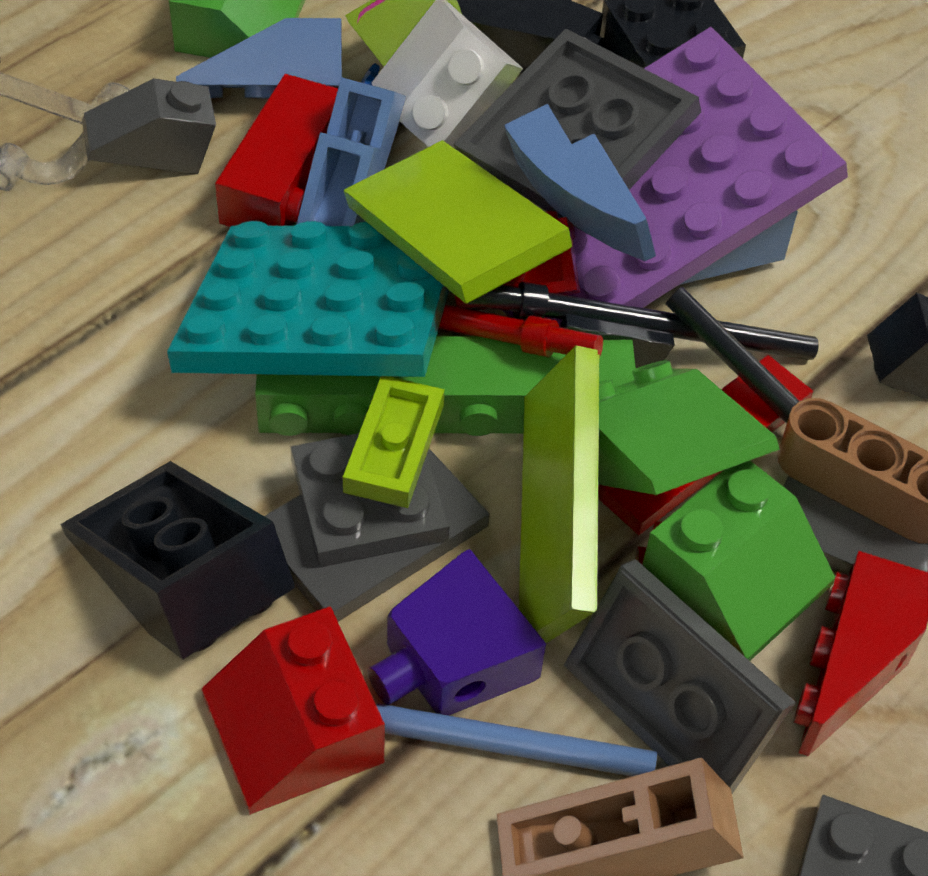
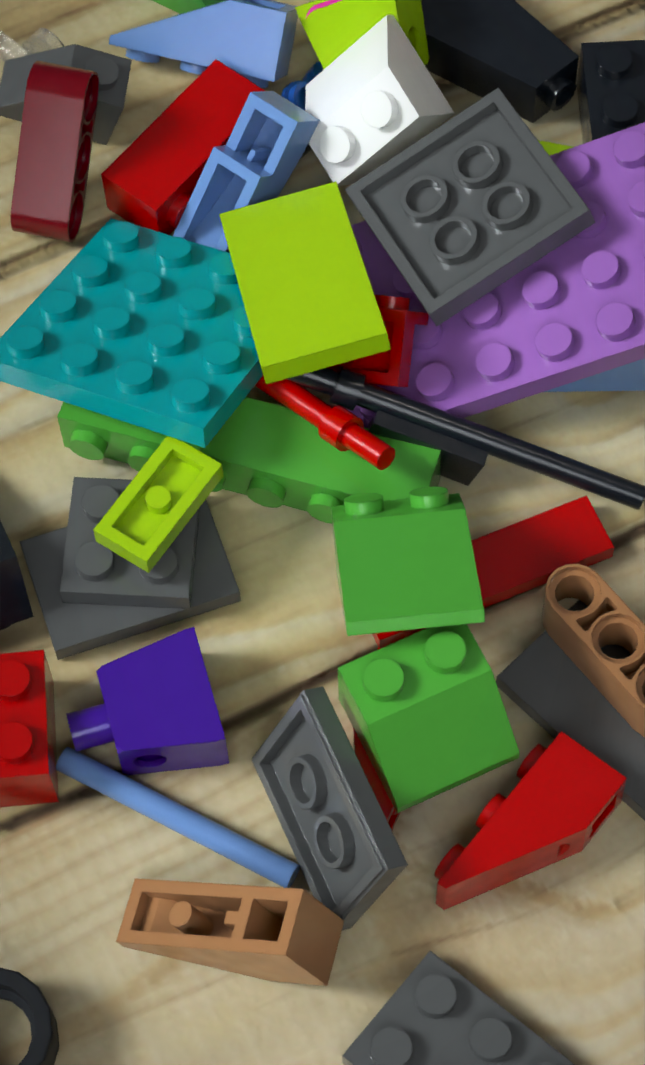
camera: 25 degrees right, 10 degrees up
(164, 171) = (54, 151): none -> dark red beam
(560, 496) = (288, 601): lime tile -> none
(579, 182) = (430, 273): medium blue slope -> none
(732, 353) = (537, 489): black bar -> none

